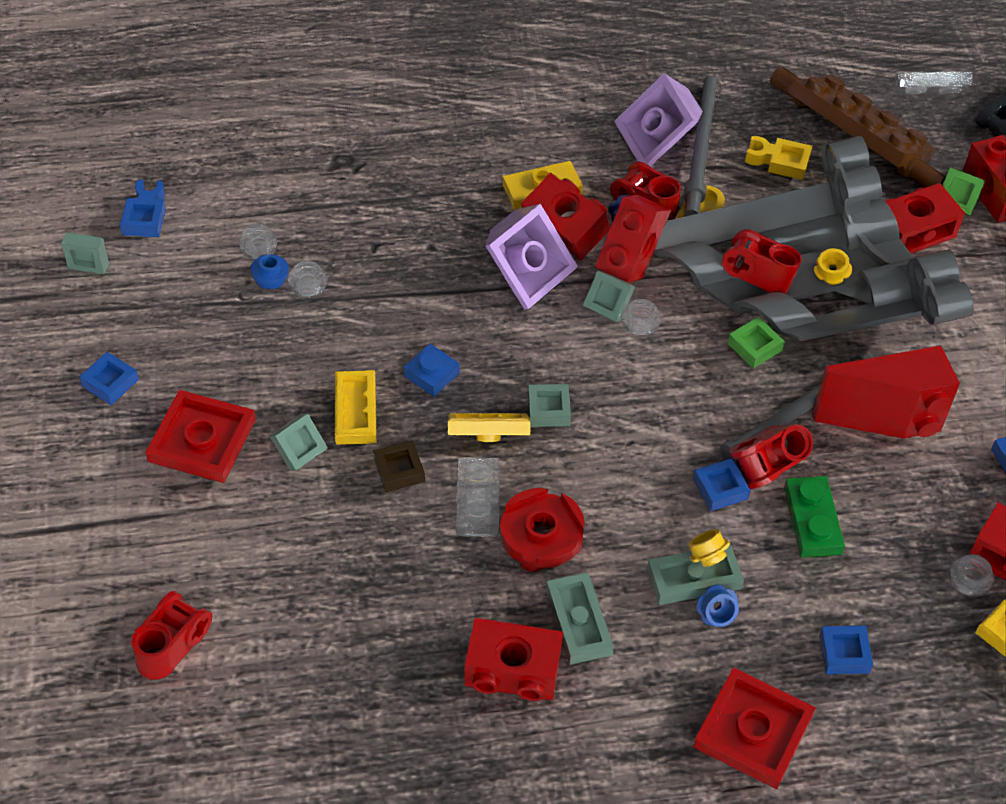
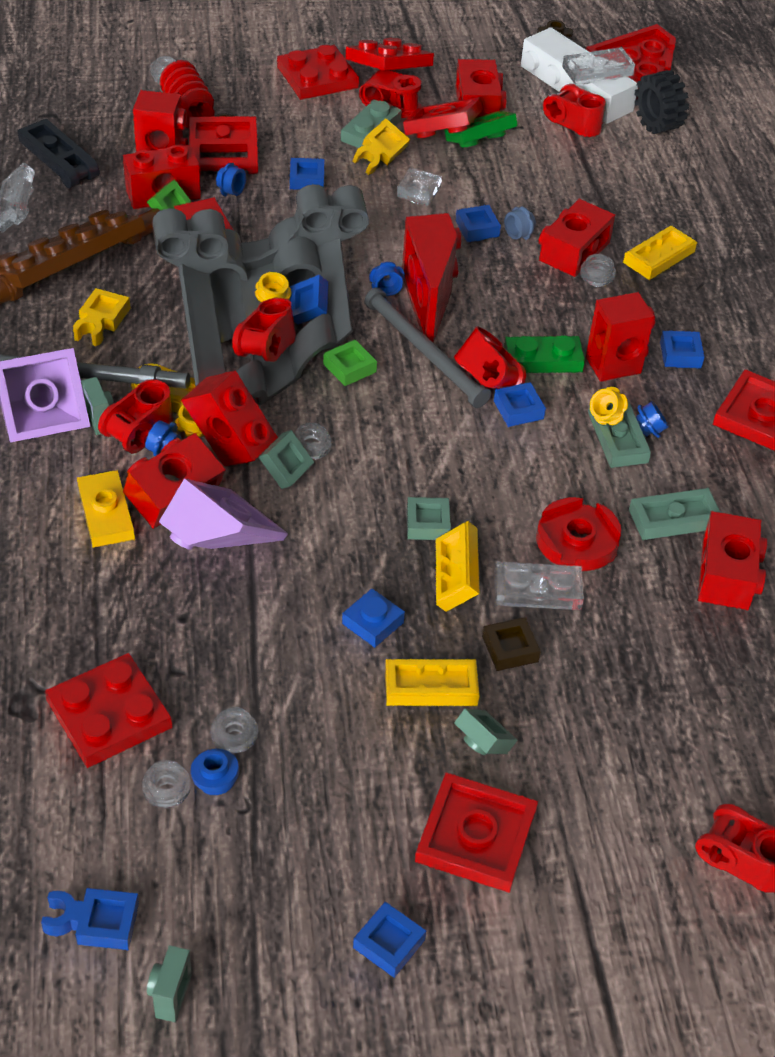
camera: 90 degrees left, 5 degrees down
(331, 206) = (108, 709): none -> red plate
(660, 157) = (95, 400): none -> sand green plate
(827, 566) = (619, 336): none -> red brick
(828, 298) = (309, 299): none -> blue plate

